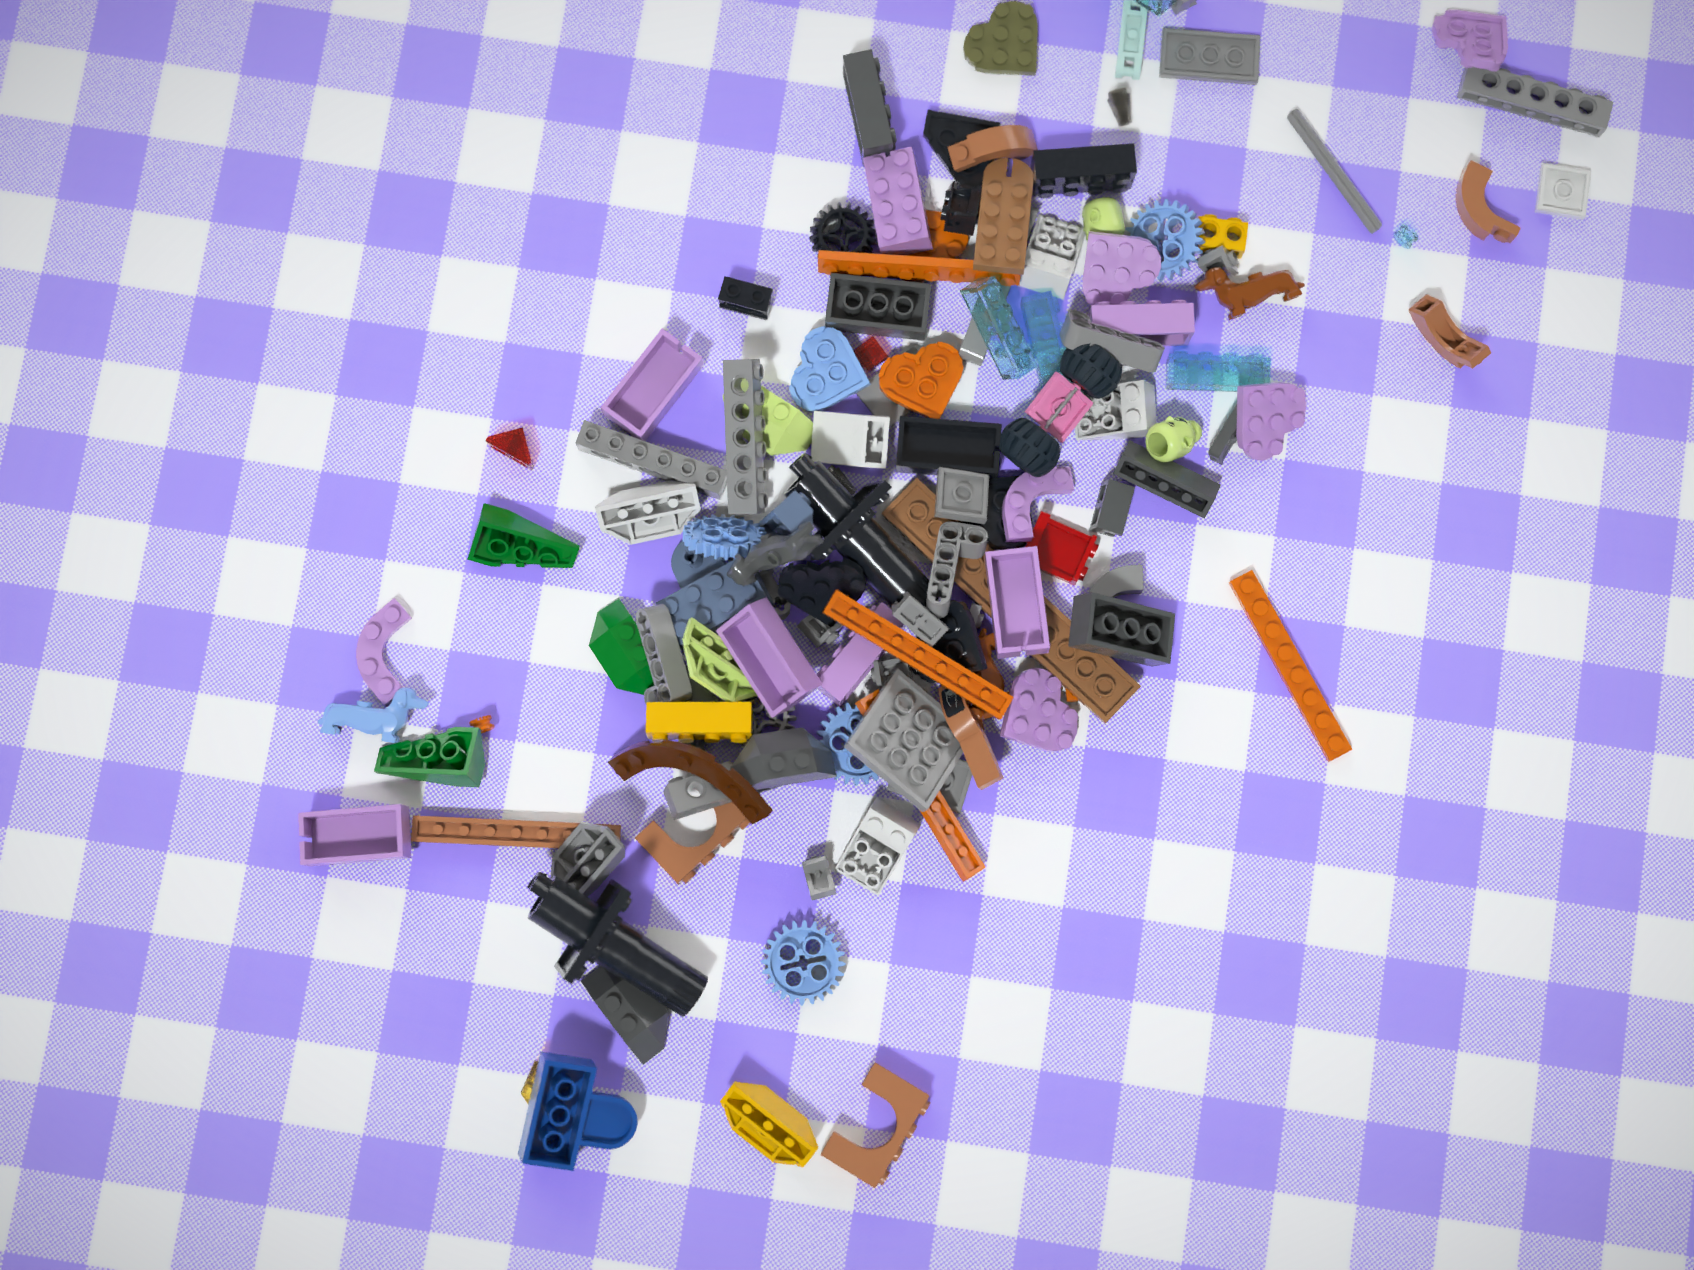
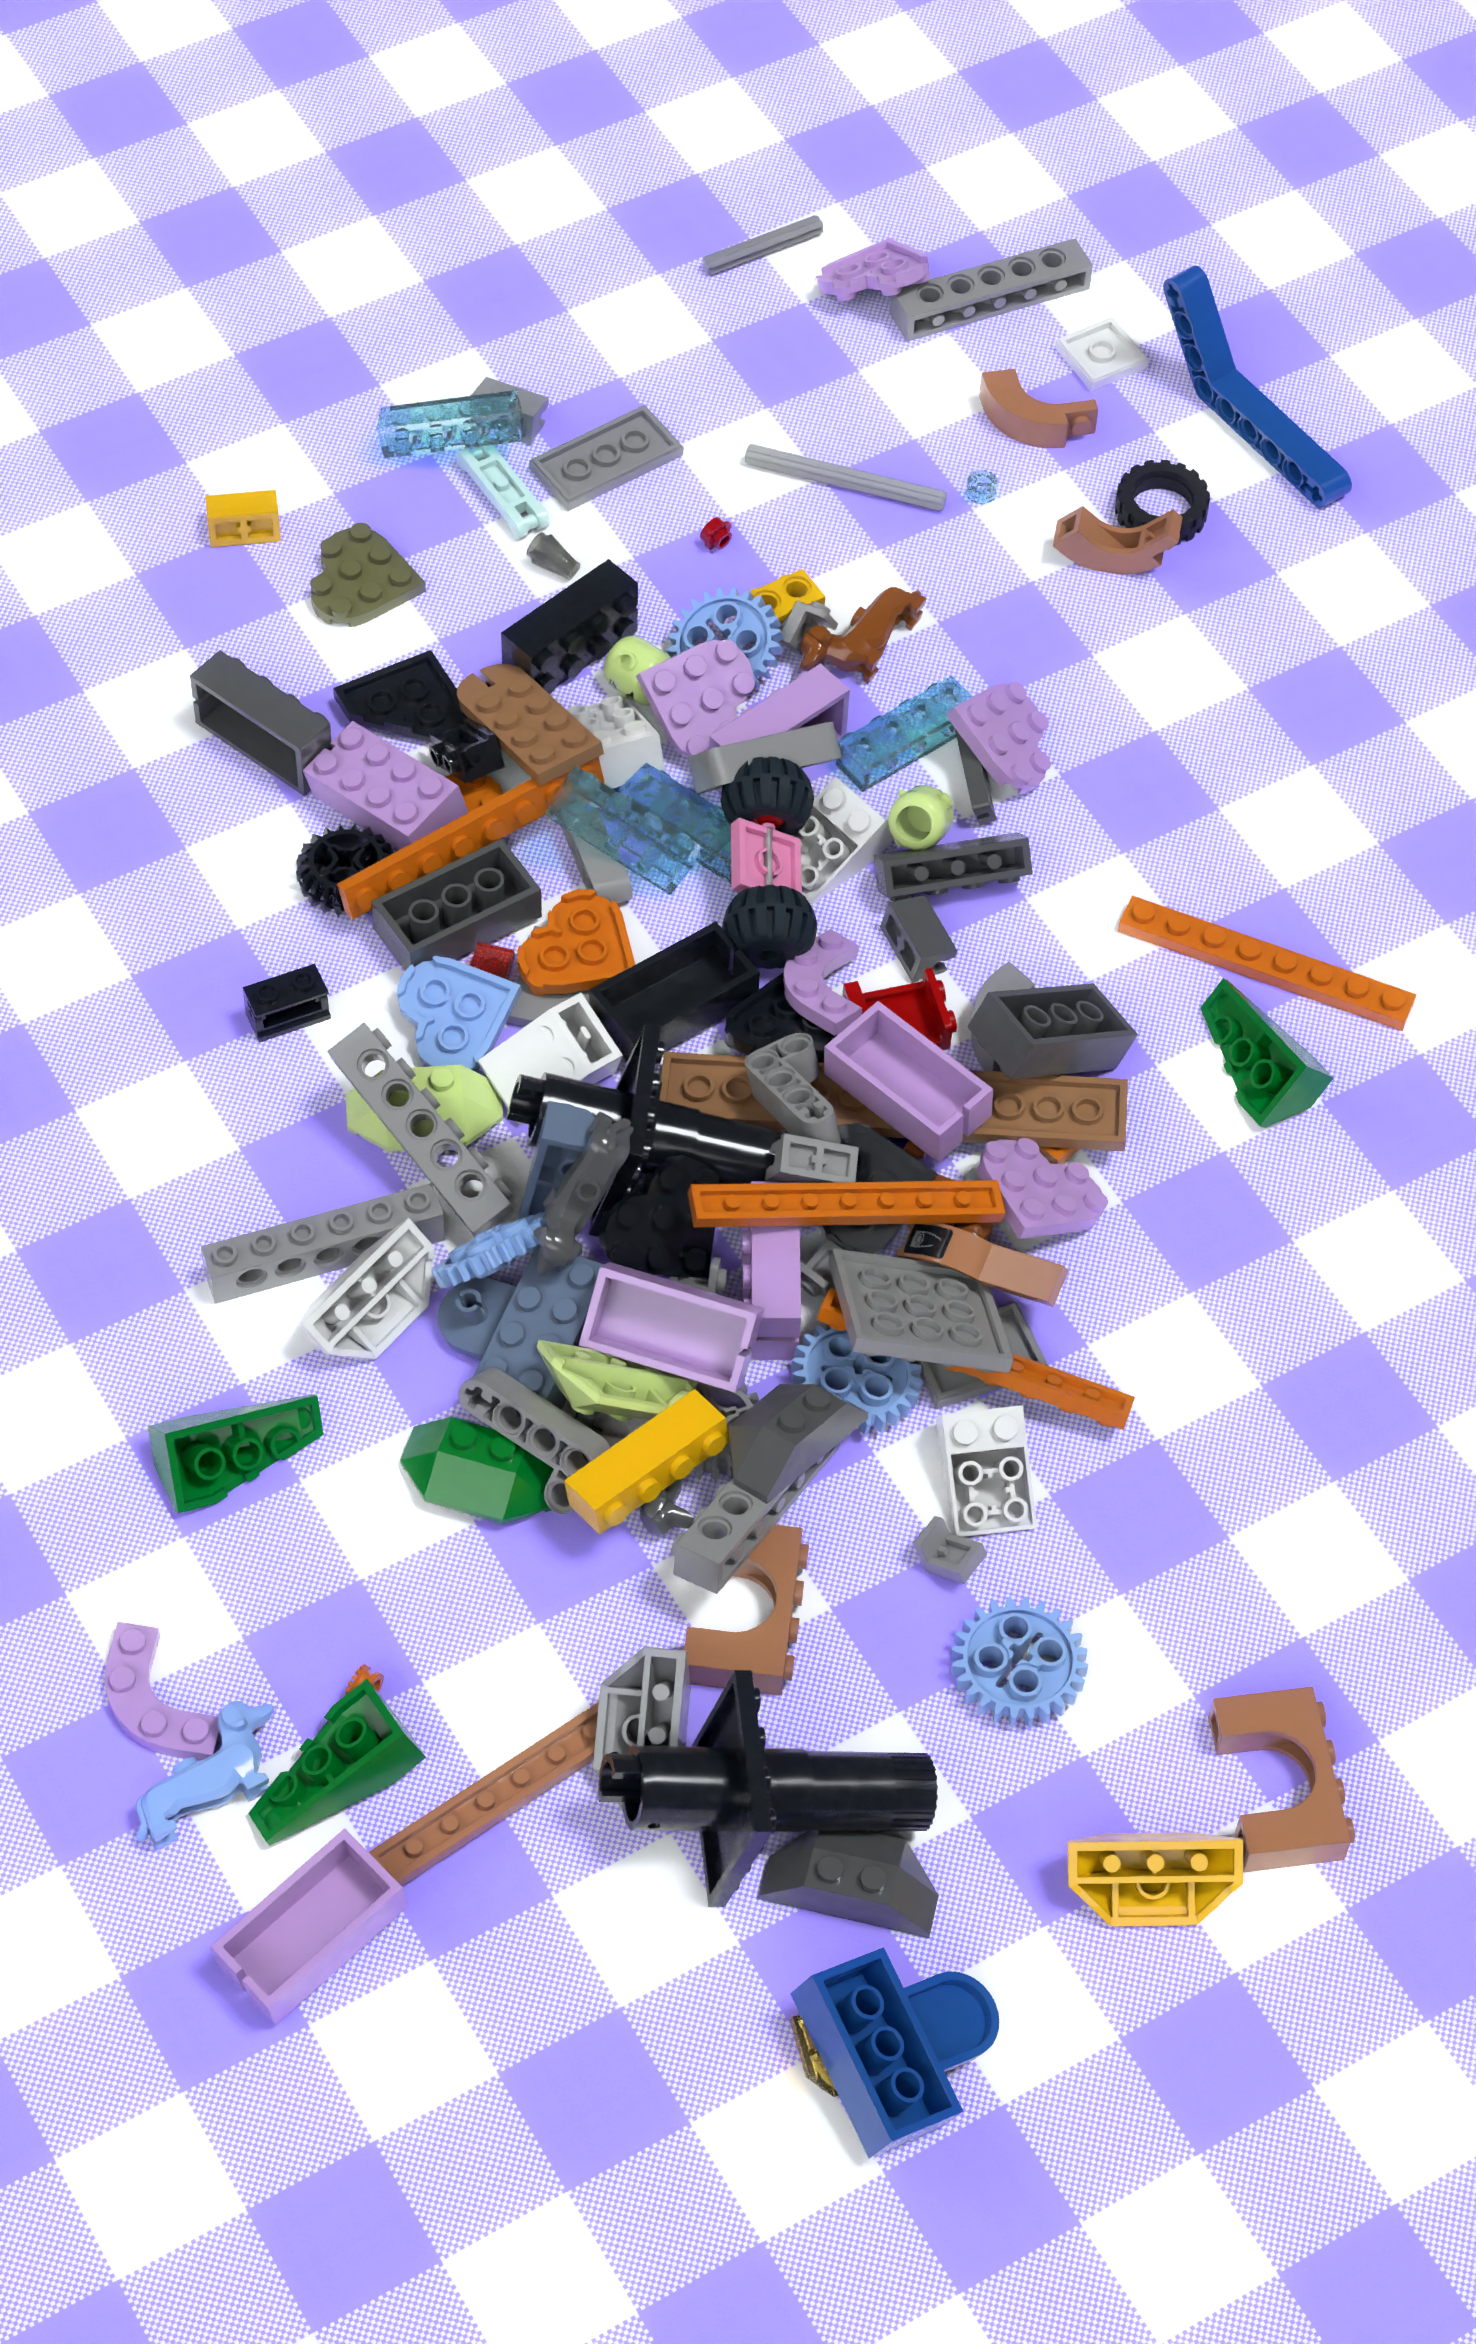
camera: 40 degrees left, 25 degrees down
(512, 445) = (130, 1346): clear red slope -> none
(652, 385) = (252, 1159): lavender piece -> none
(697, 762) = (678, 1498): reddish brown plate -> none
(961, 495) = (739, 1019): light grey plate -> none
(993, 143) = (439, 667): nougat arch -> none
(1226, 157) = (716, 533): none -> red plate
(1231, 733) = (1267, 1065): none -> green wedge
(1517, 304) = (1163, 476): none -> black tyre
(1611, 292) = (1239, 401): none -> blue beam

